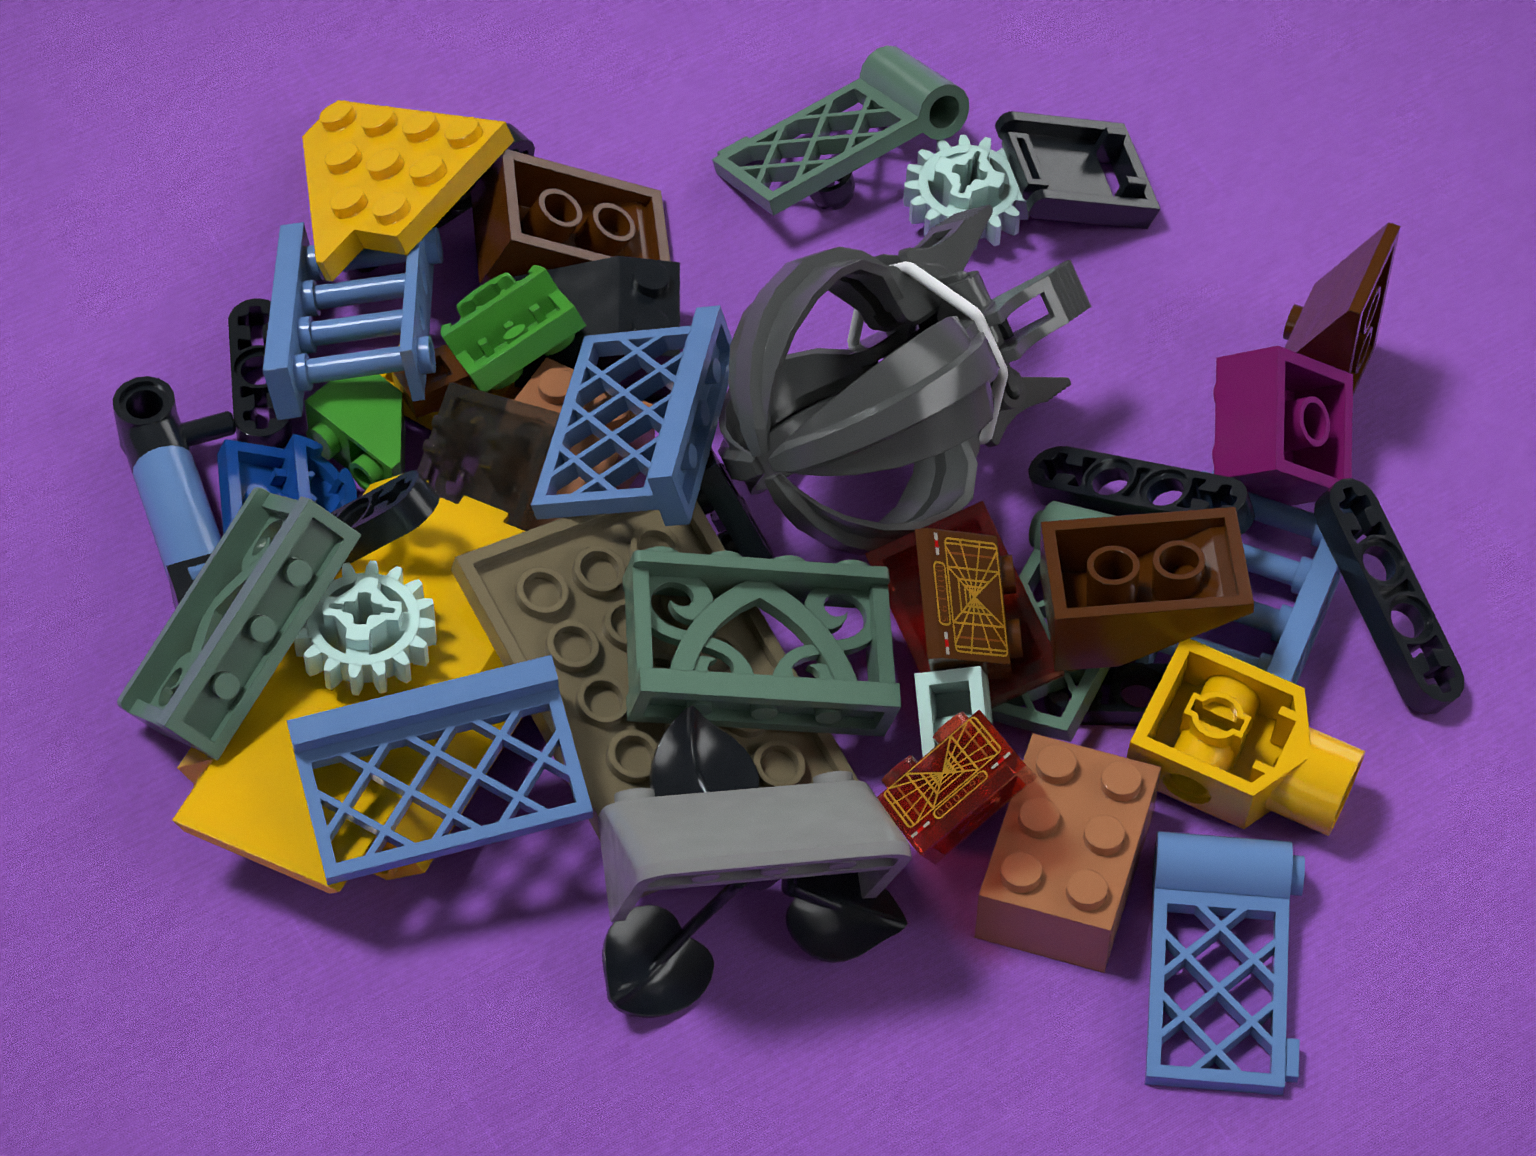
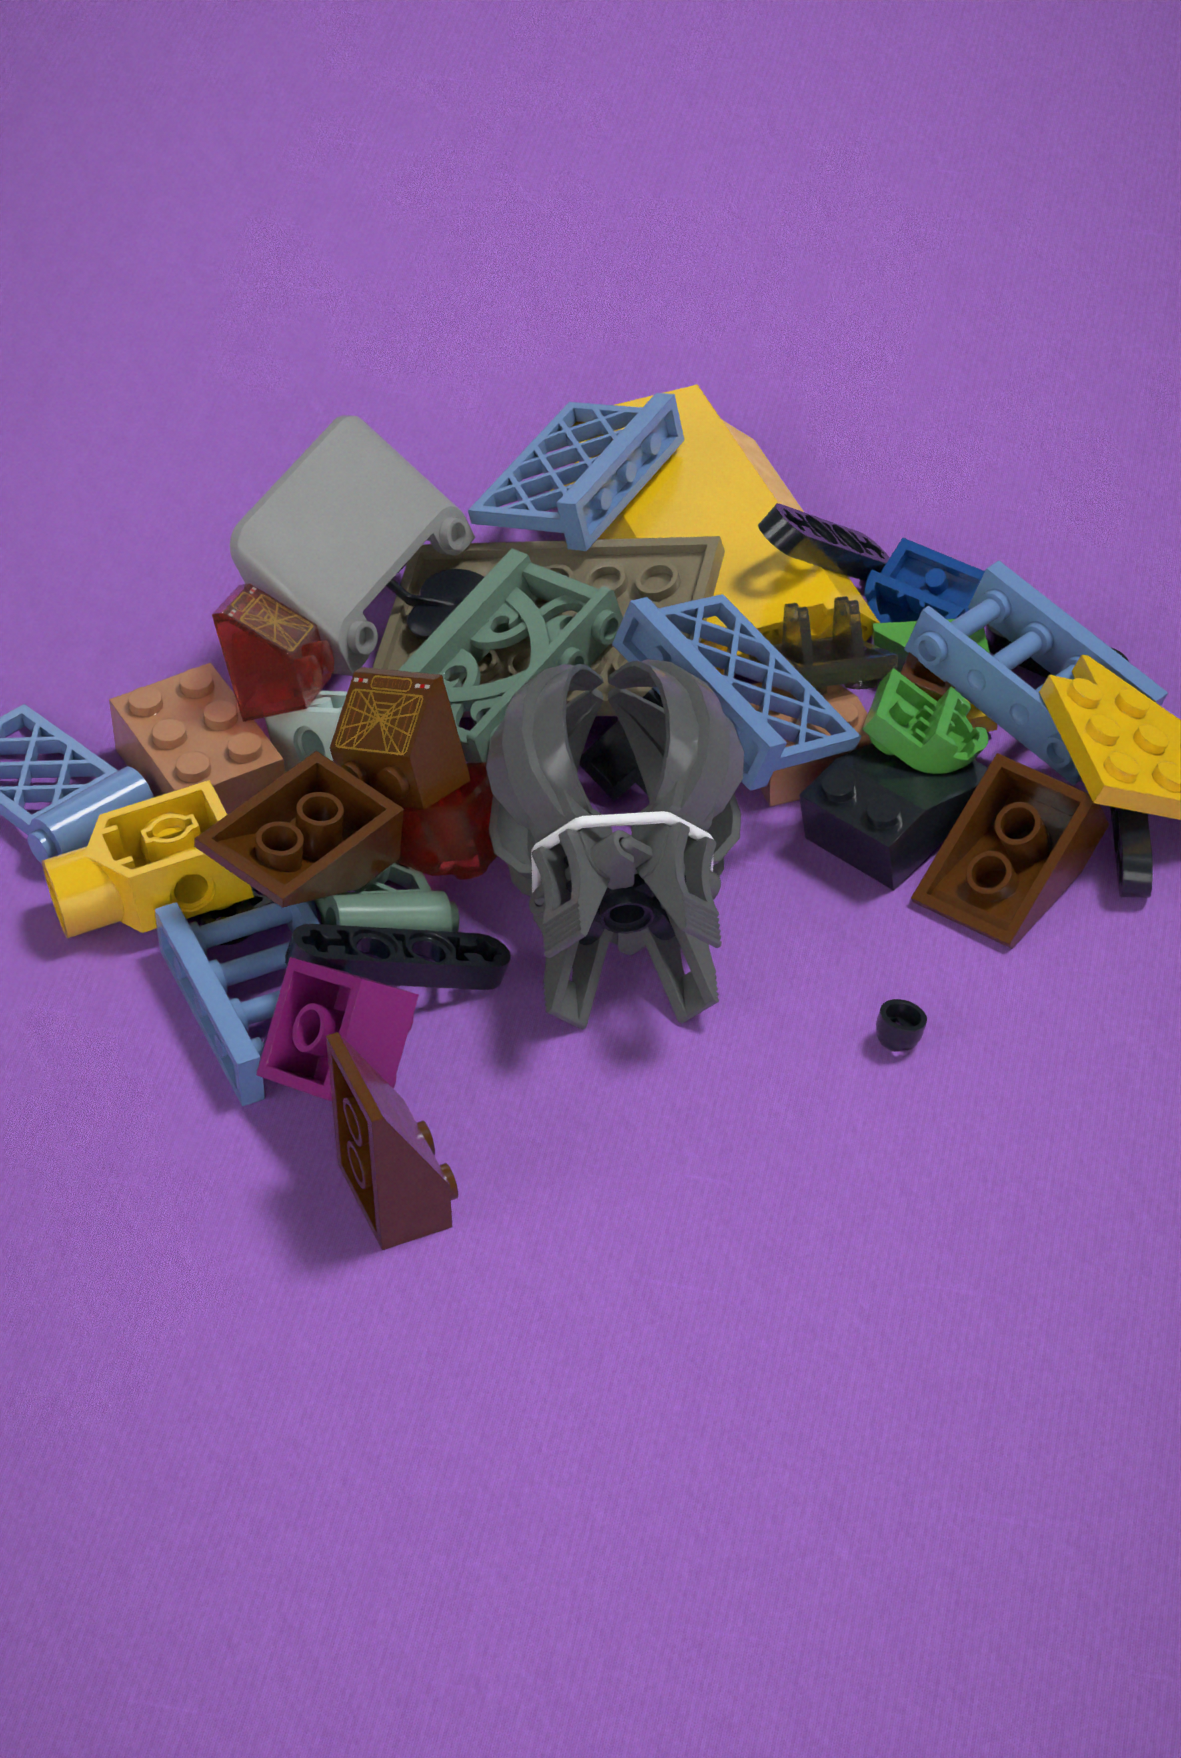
camera: 135 degrees right, 10 degrees down
(168, 476) = (1055, 567): piece -> none
(238, 620) = (787, 445): sand green fence -> none
(368, 629) = (724, 494): light aqua gear -> none
(893, 93) = (925, 1095): sand green piece -> none
(963, 180) = (798, 1091): light aqua gear -> none
(1061, 170) = (741, 1148): black container -> none
(1398, 593) = (150, 1029): black beam -> none

